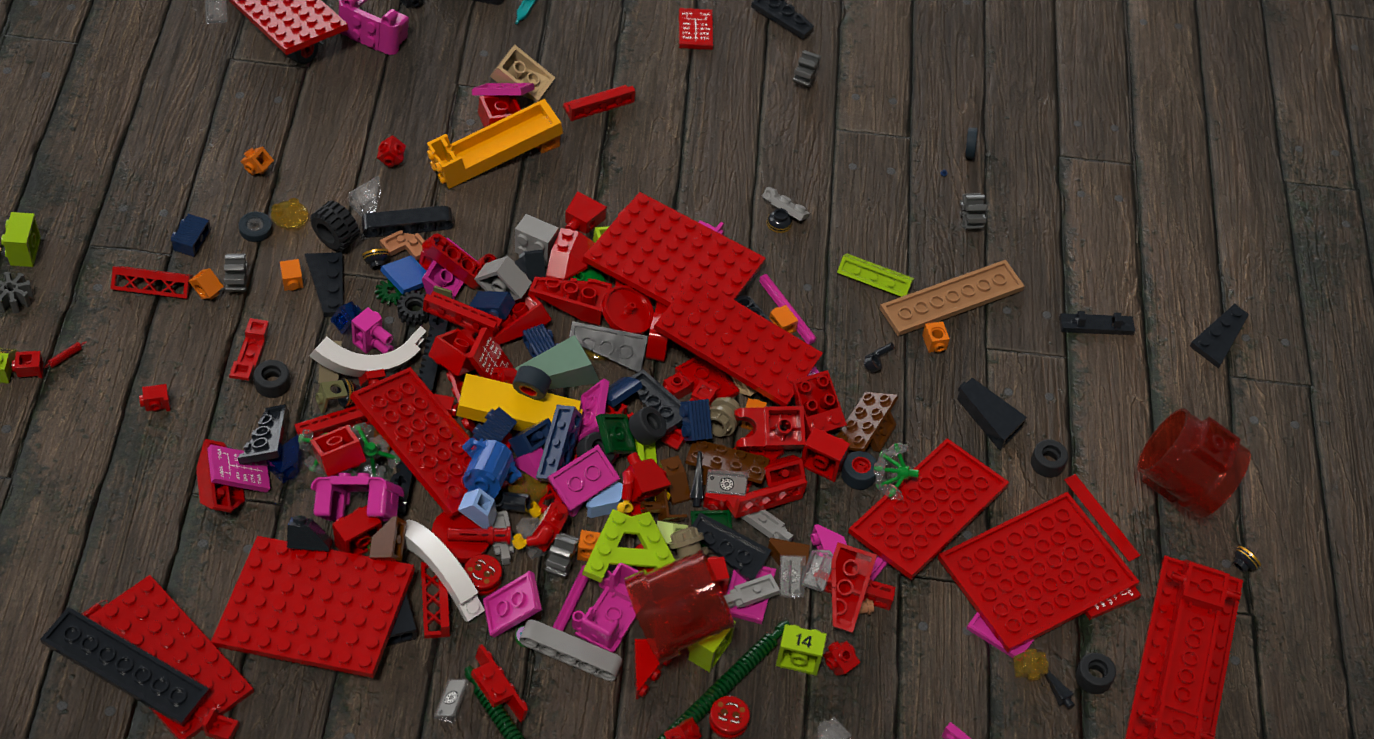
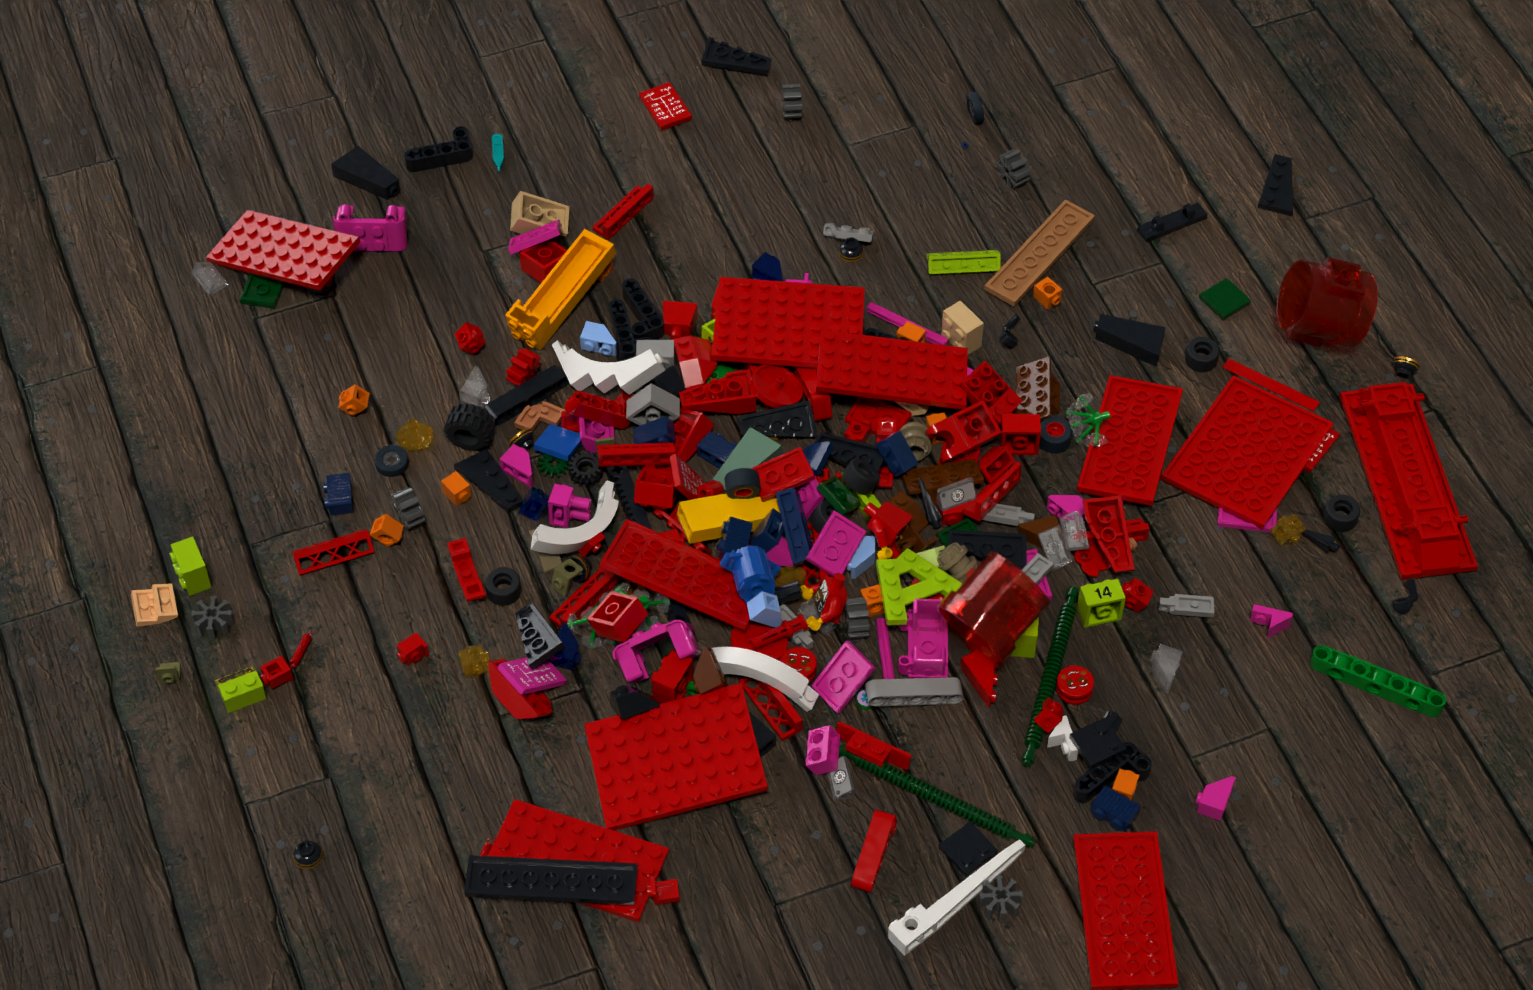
camera: 20 degrees left, 0 degrees up
(198, 430) = (474, 660): none -> clear yellow brick
(248, 39) = (261, 291): none -> dark green tile
(359, 278) = (517, 464): none -> dark pink slope
(417, 195) = (523, 366): none -> red gear
(450, 664) = (823, 750): none -> dark pink brick
(494, 239) = (629, 373): none -> white arch
(500, 199) = (597, 339): none -> light blue slope
(528, 199) = (622, 330): none -> black beam
(554, 210) = (650, 320): none -> black beam
(576, 390) = (783, 473): none -> red tile
(691, 204) = (767, 268): none -> clear blue slope
(820, 608) = (1094, 560): none -> red plate
(832, 333) = (962, 327): none -> tan brick
(888, 692) = (1188, 605): none -> light grey hinge
(1104, 416) = (1224, 299): none -> dark green tile

